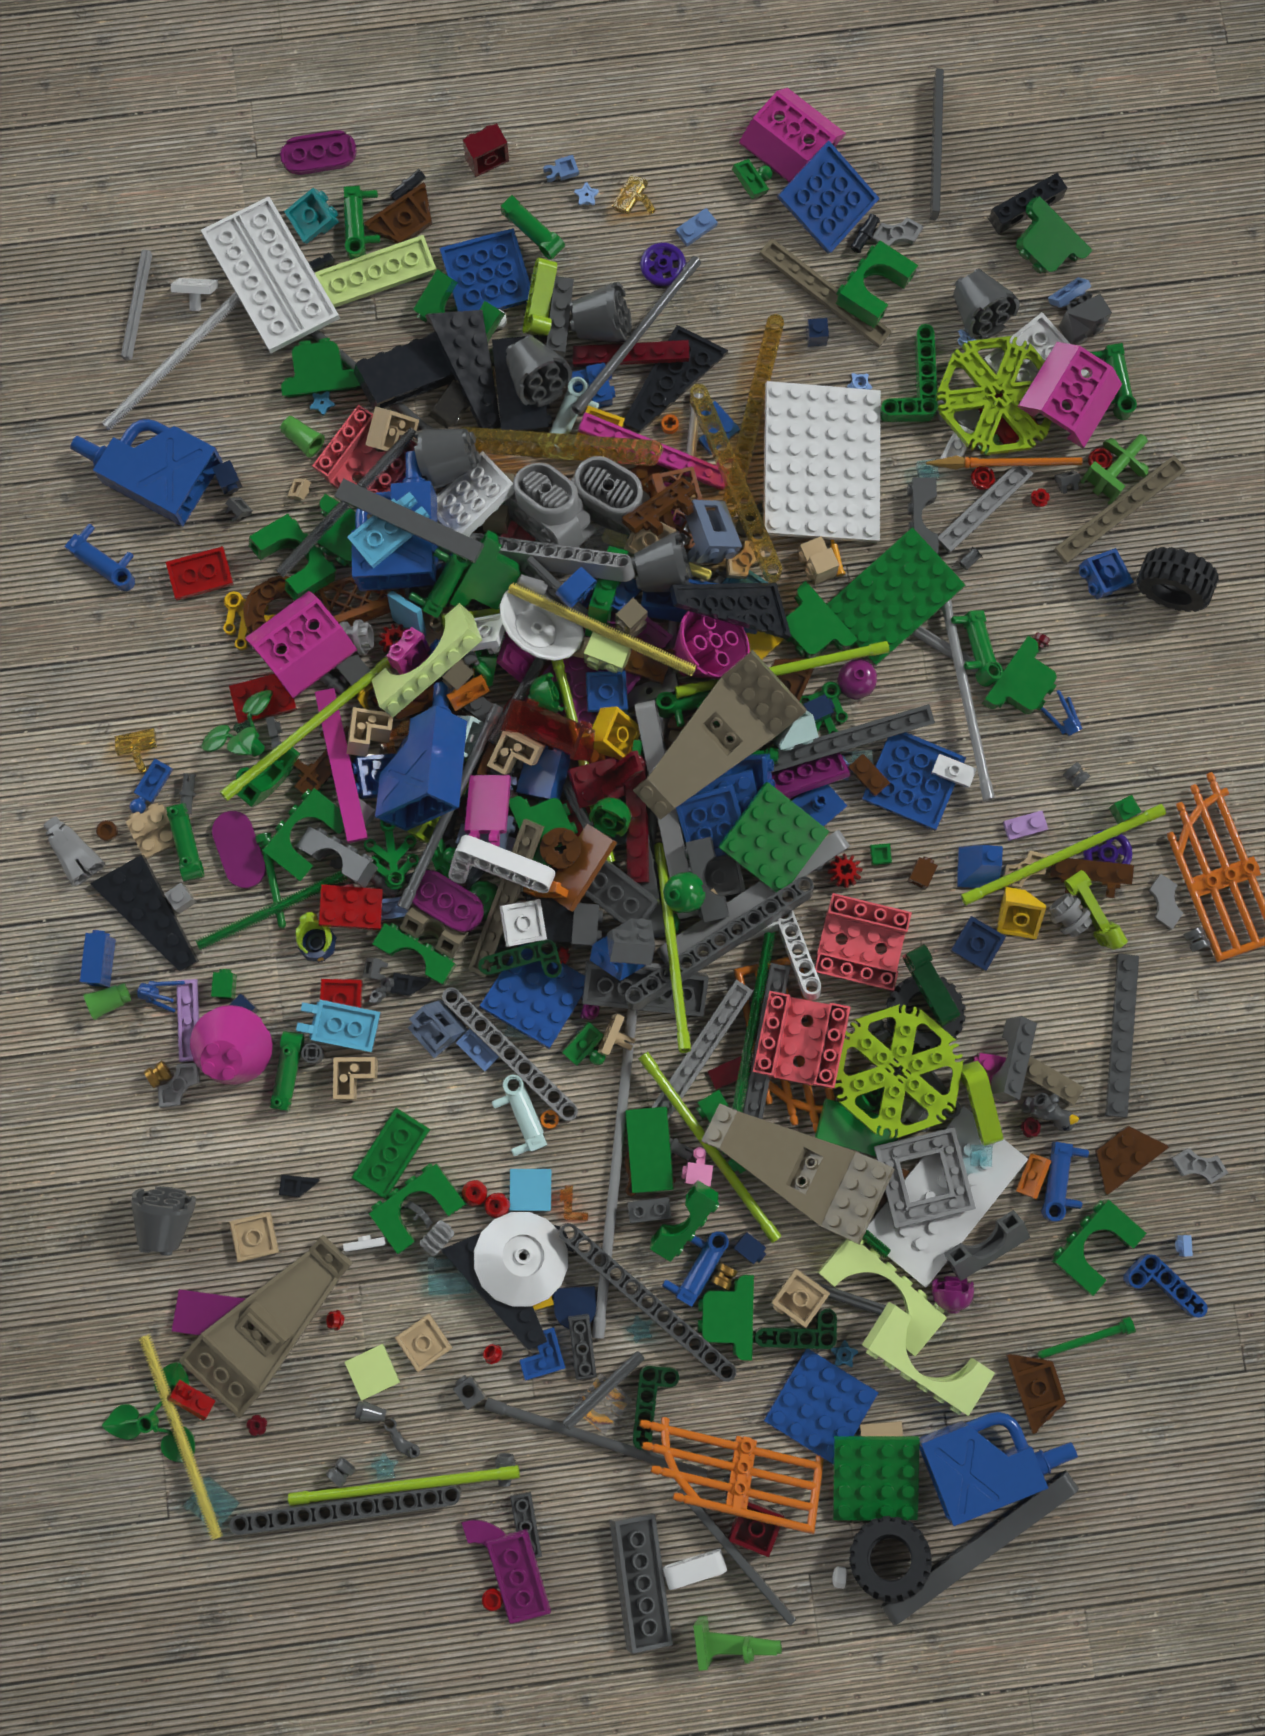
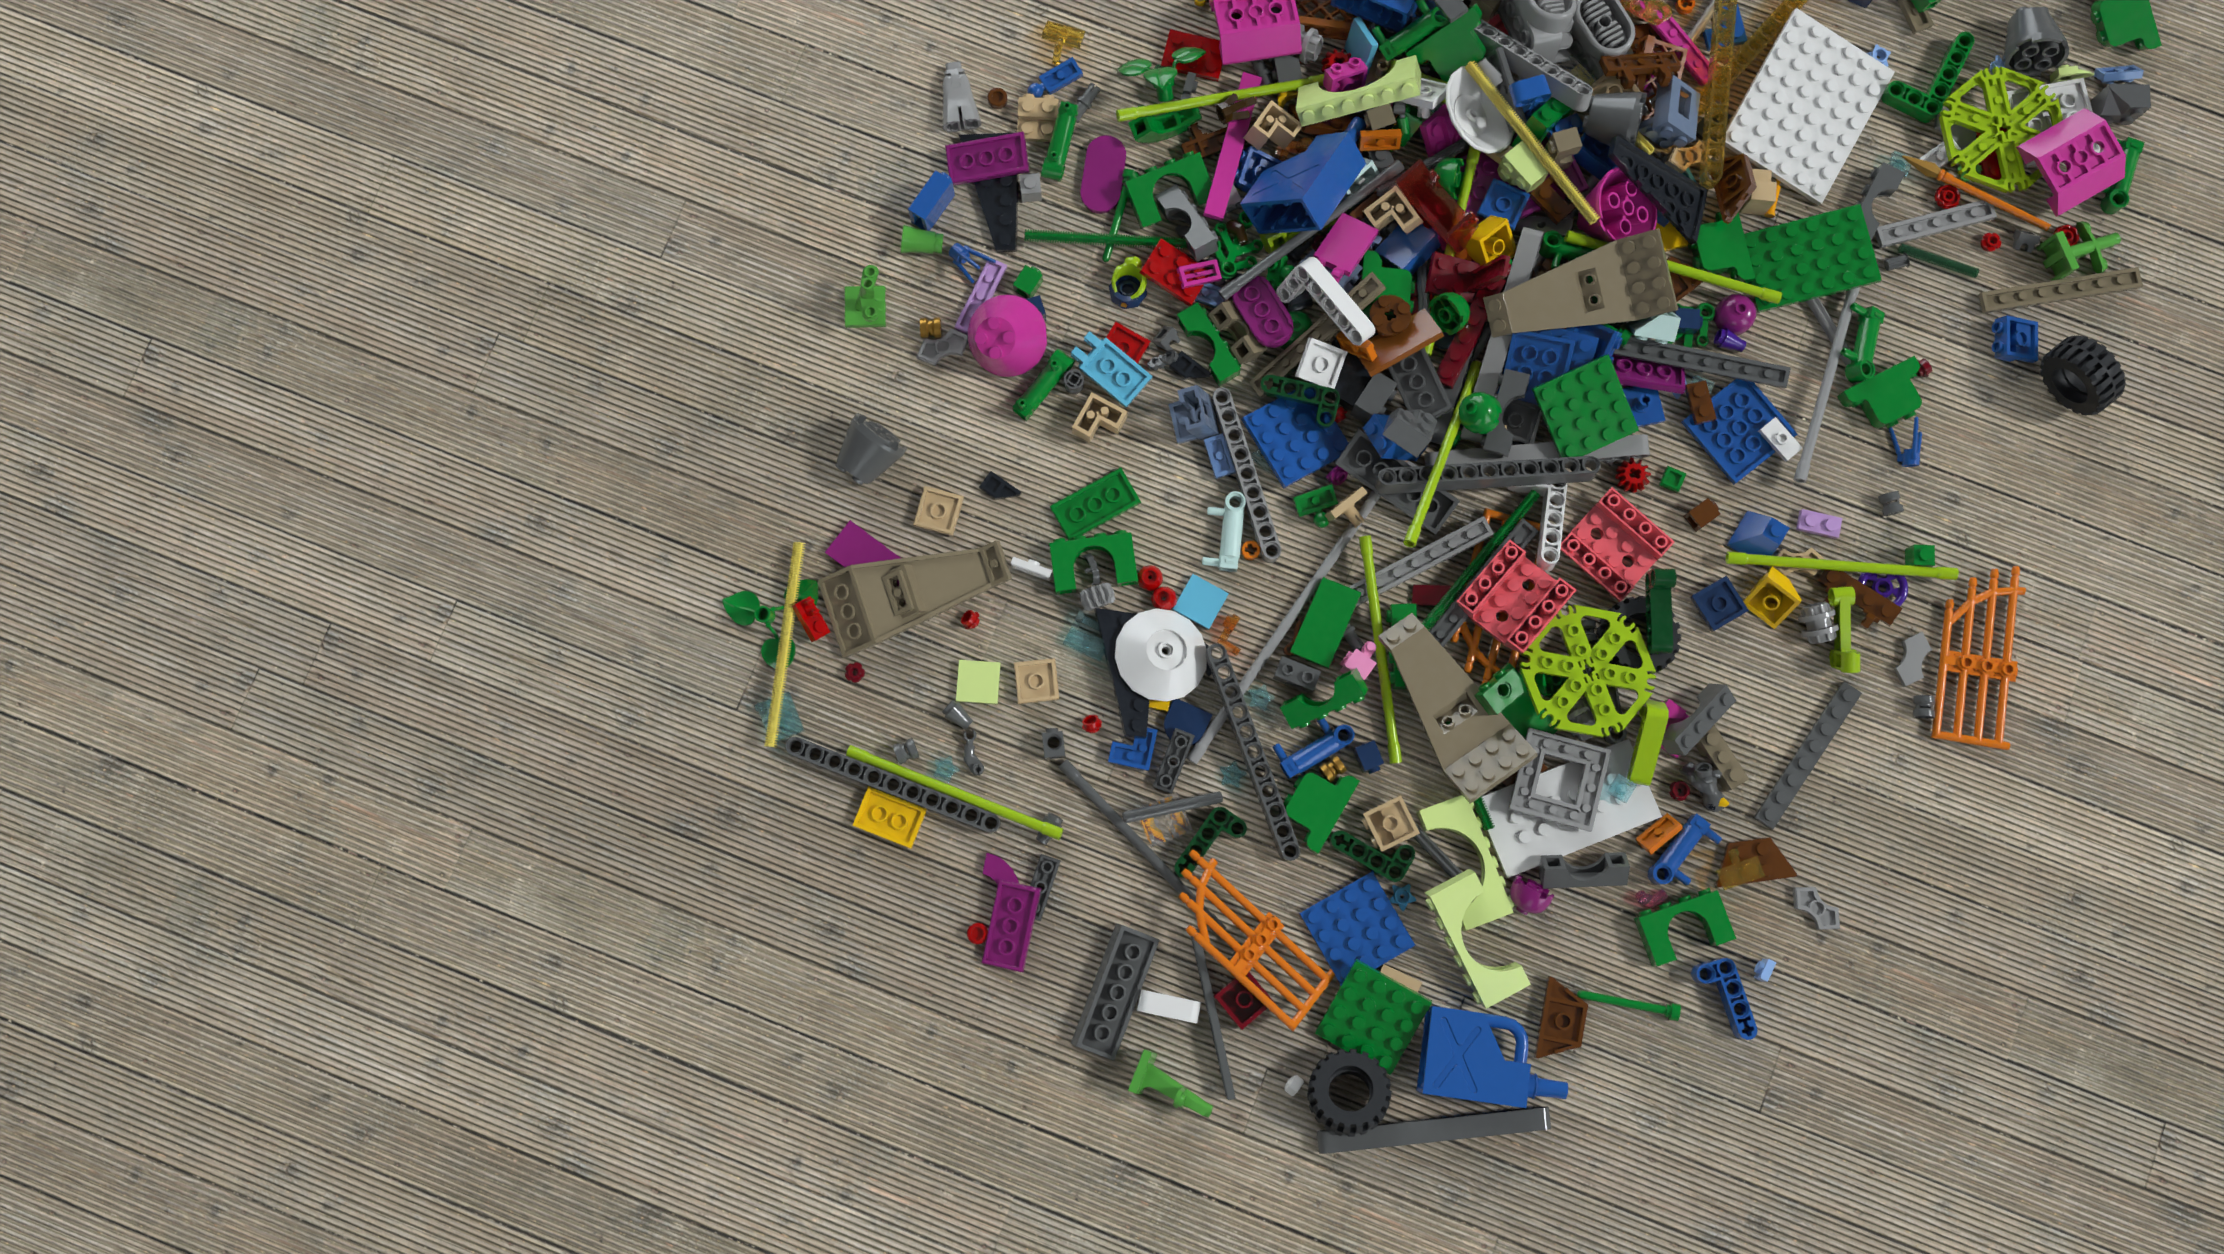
camera: 30 degrees right, 0 degrees up
(87, 1083) = (865, 303): none -> bright green piece
(127, 893) = (987, 158): none -> magenta tile
(321, 738) = (1230, 111): none -> dark brown rock
(358, 1540) = (889, 817): none -> yellow plate
(359, 910) = (1183, 278): none -> dark pink tile
(385, 836) = (1238, 229): none -> dark brown arm
(622, 1246) = (1262, 703): none -> clear light blue plate
(797, 569) = (1734, 186): none -> reddish brown wing
(841, 1122) = (1511, 687): none -> green brick
(864, 705) = (1728, 340): none -> dark purple cone
(1004, 537) = (1938, 260): none -> clear green piece
(1025, 315) = (2066, 73): none -> yellowish green plate
(1057, 1238) = (1650, 900): none -> clear pink arm
(1118, 1172) = (1739, 872): none -> clear yellow plate

